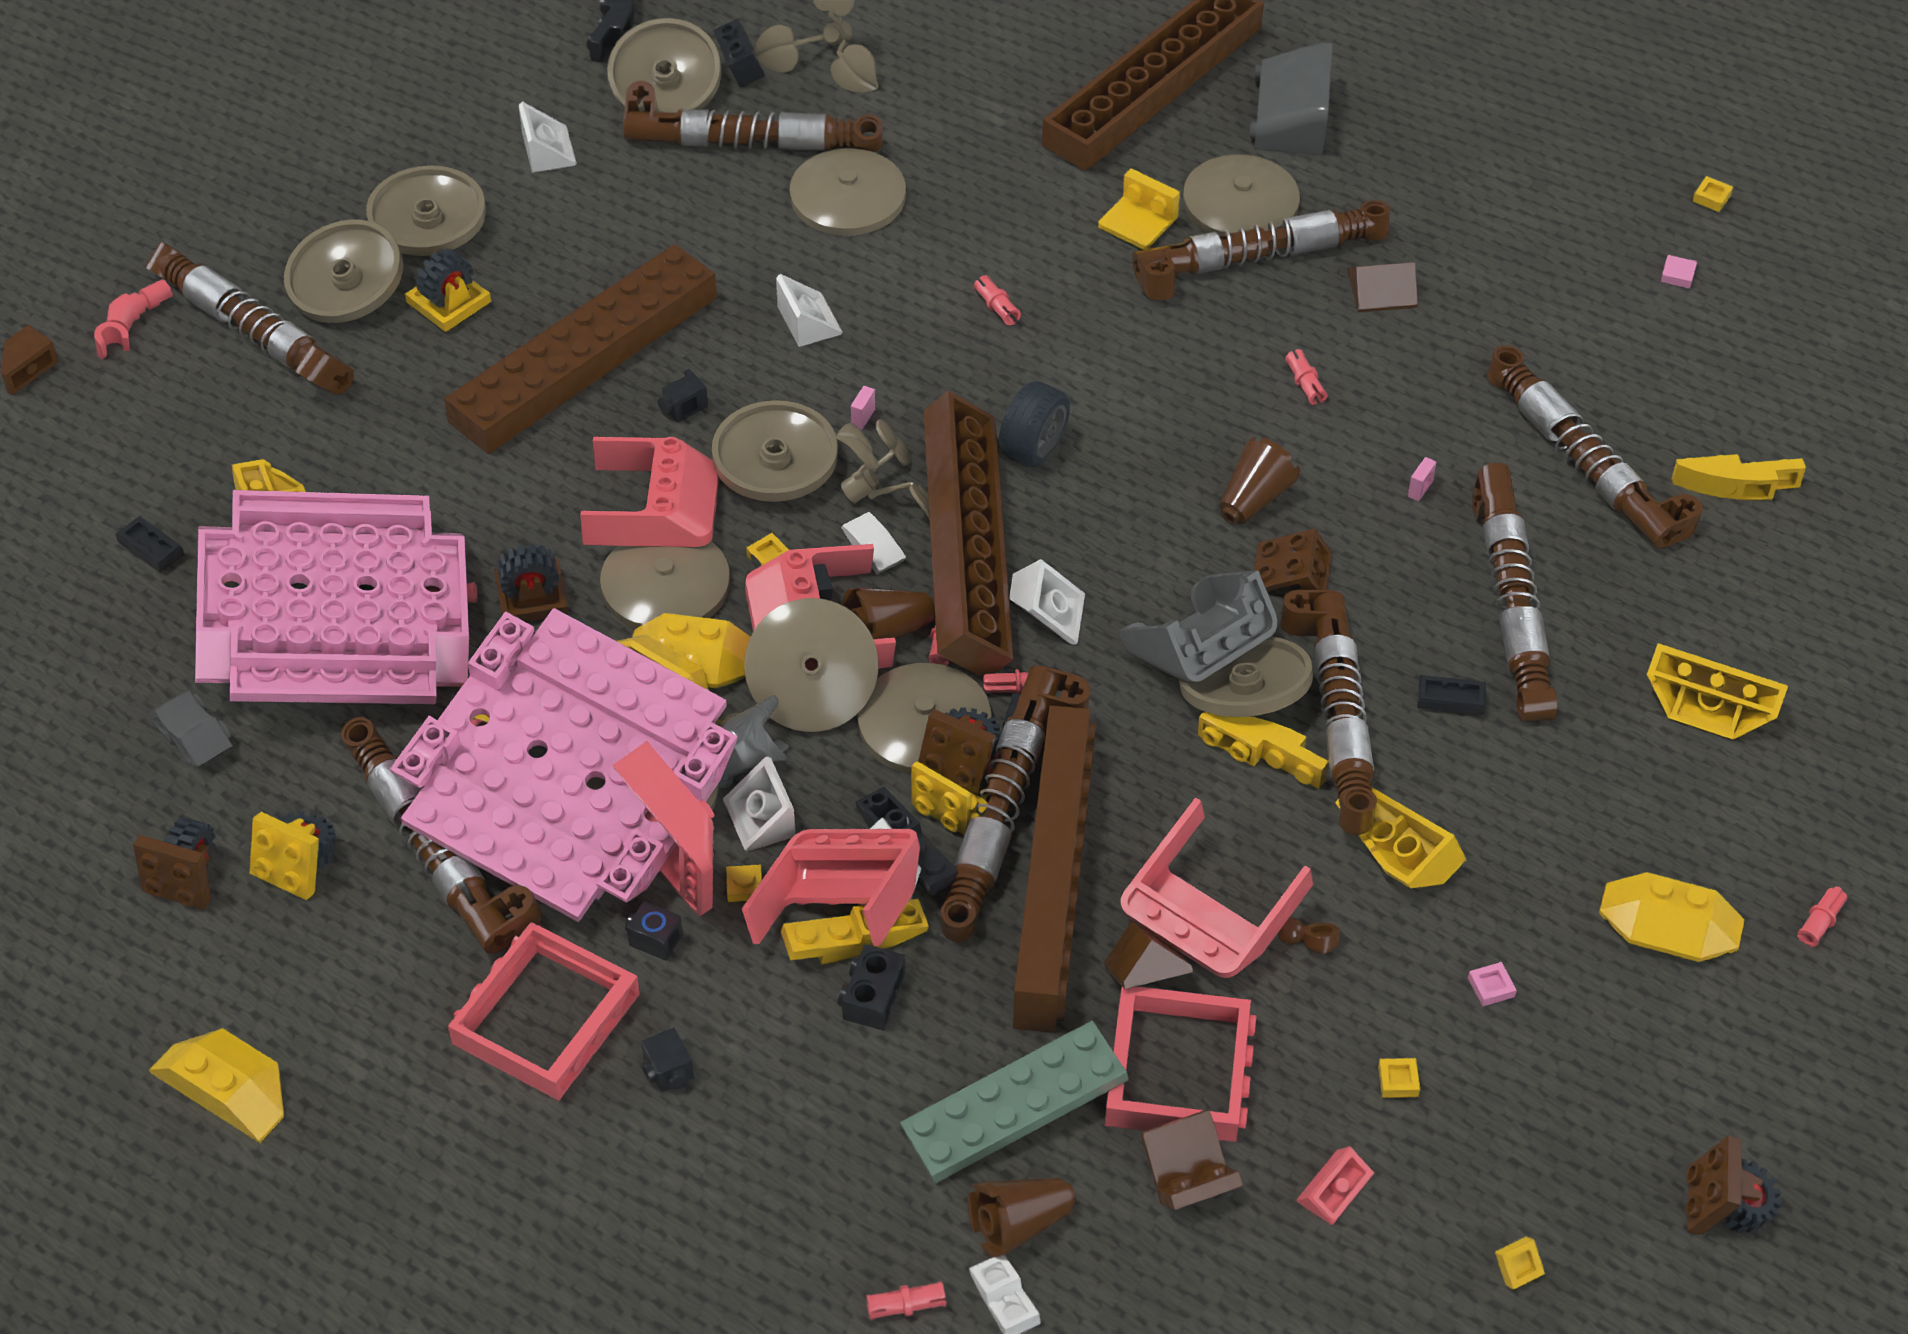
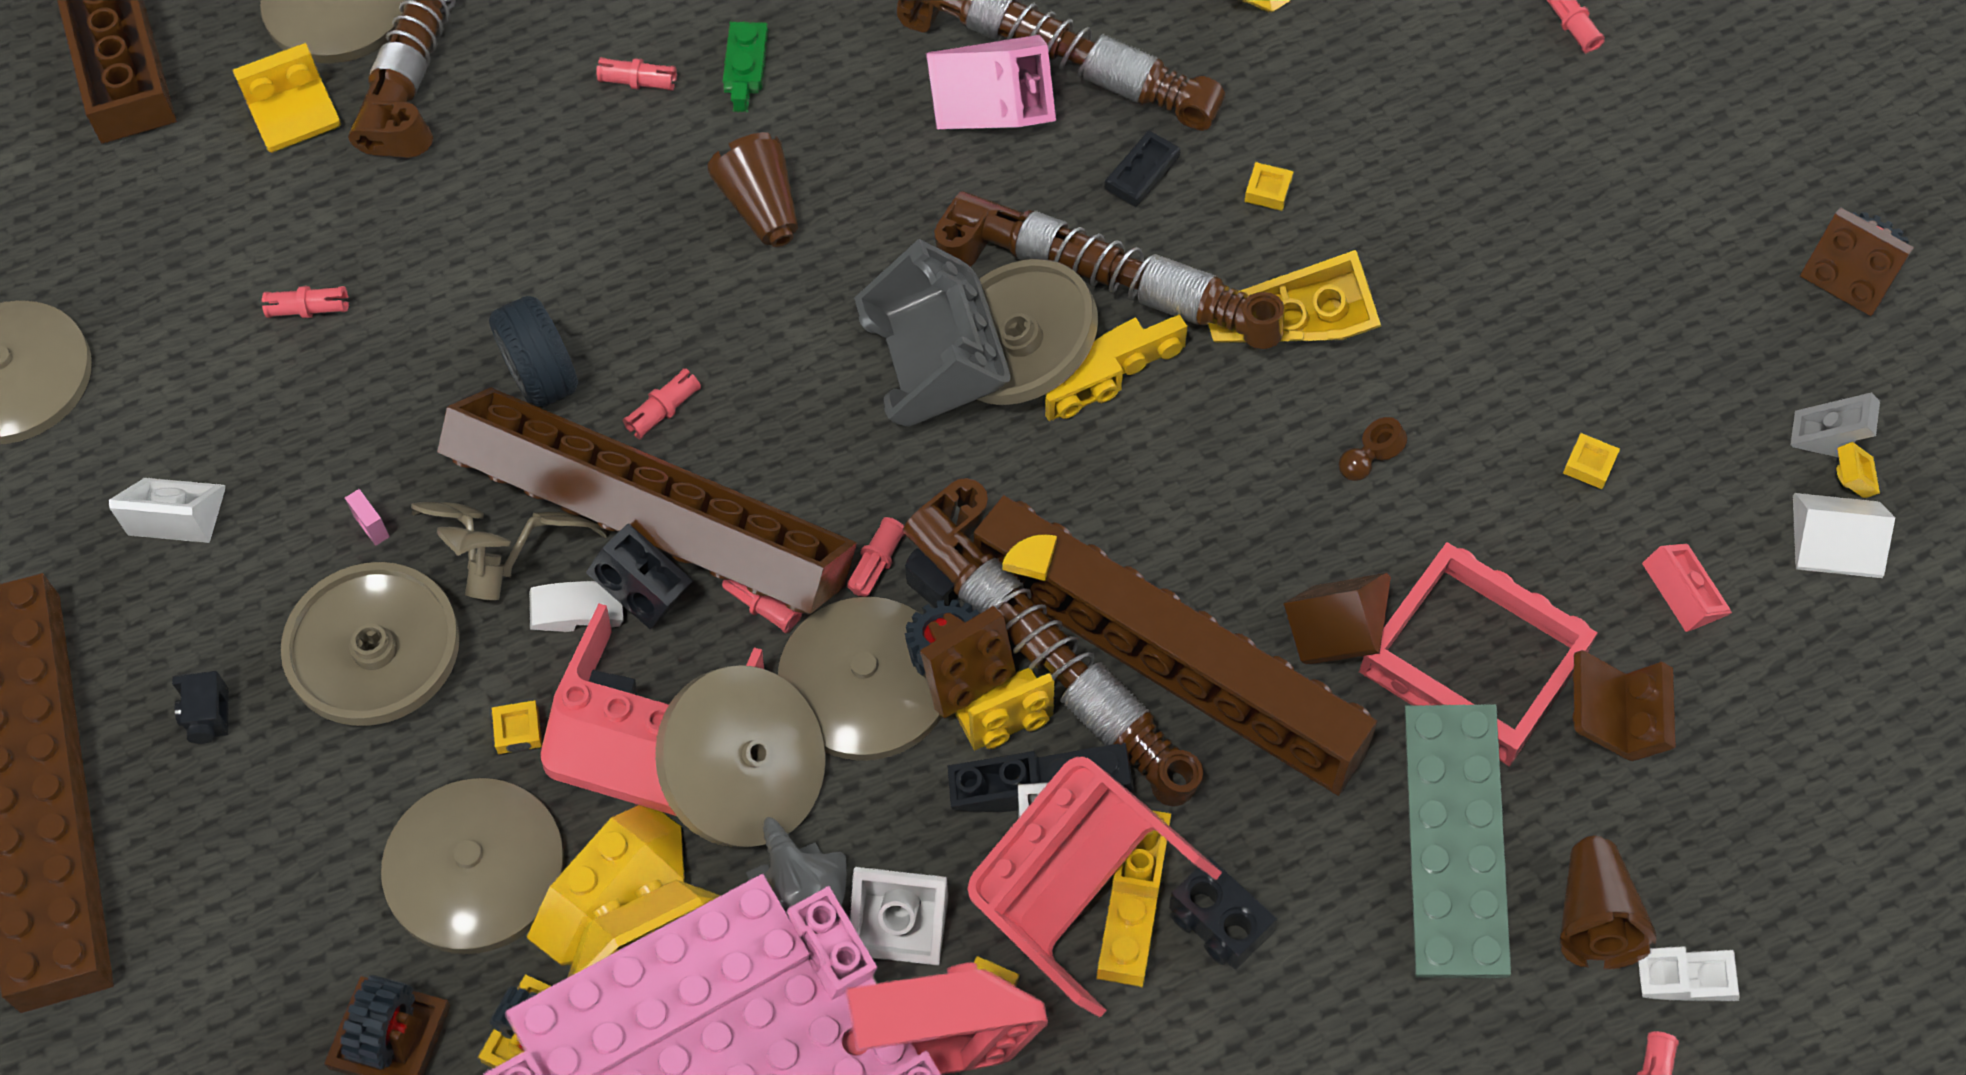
camera: 60 degrees left, 10 degrees up
(679, 495) = (363, 777): coral windscreen -> none
(890, 611) = (701, 639): reddish brown cone -> none
(908, 555) = (639, 576): none -> black brick
(1049, 599) = (784, 467): white slope -> none
(1049, 742) = (1031, 556): none -> yellow tile
(1053, 515) = (662, 403): none -> coral pin
(1195, 921) = (1312, 542): coral windscreen -> none
(1294, 560) = (883, 218): reddish brown bracket -> none
(1363, 430) = (744, 62): none -> green hinge
(1422, 479) = (851, 45): bright pink tile -> none
(1446, 570) = (992, 84): none -> bright pink slope
(1454, 1272) = (1841, 535): none -> white slope
(1492, 984) = (1513, 323): bright pink tile -> none
(1495, 777) = (1268, 186): none -> yellow plate
(1550, 1232) = (1835, 424): none -> light grey slope
(1672, 916) = (1515, 138): yellow wedge -> none

